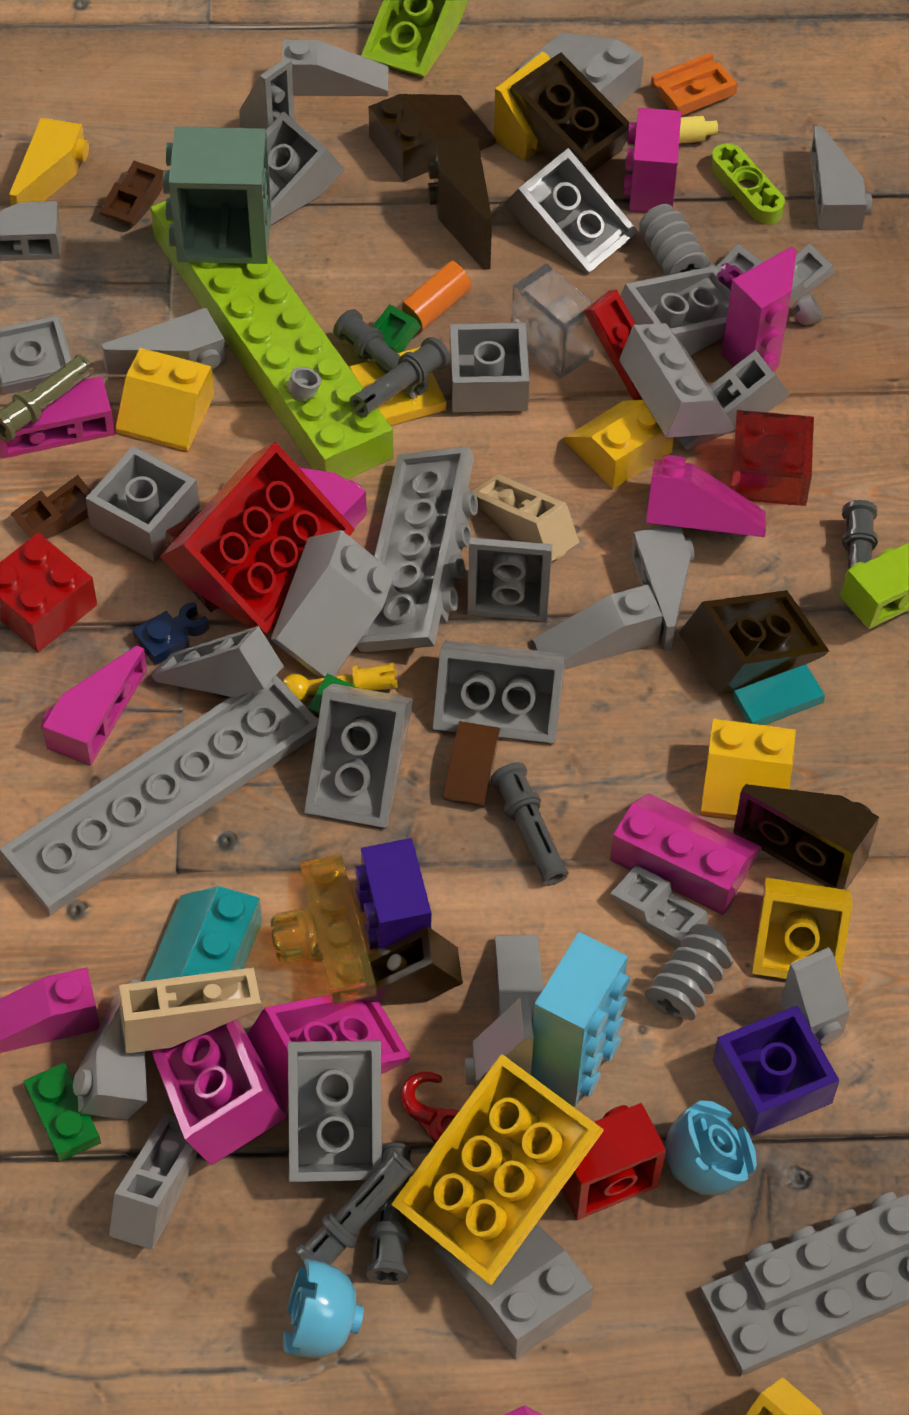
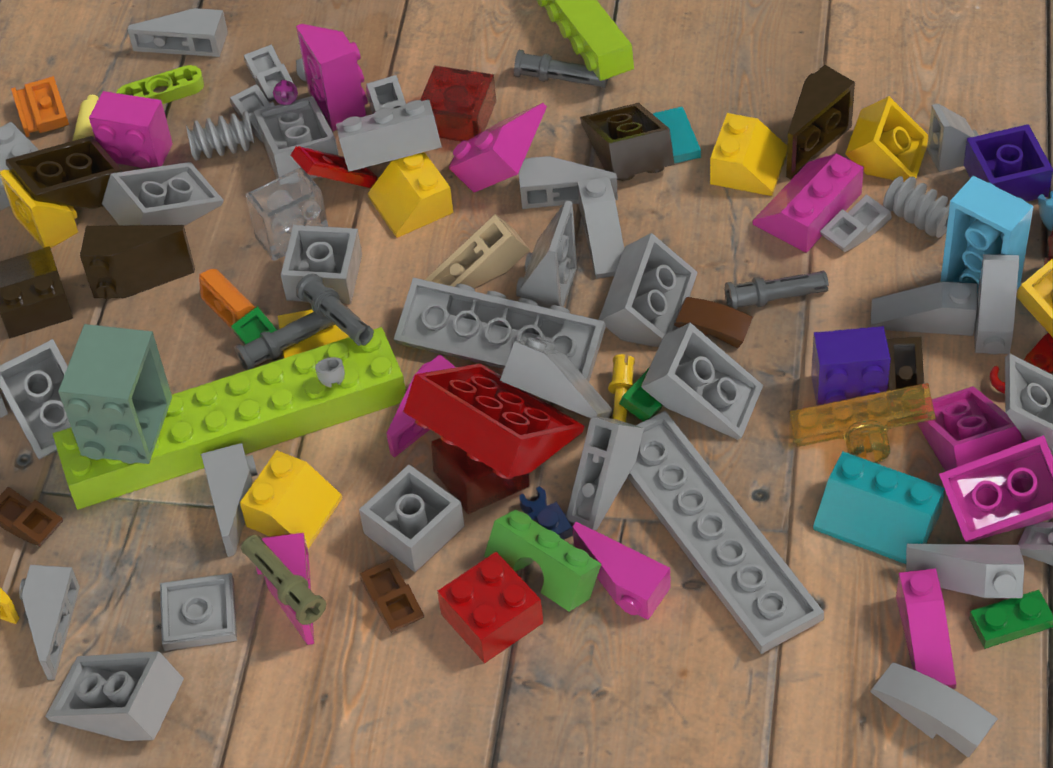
camera: 75 degrees left, 5 degrees down
(97, 627) = (566, 569): none -> bright green arch
(181, 1008) = (955, 493): tan slope -> none

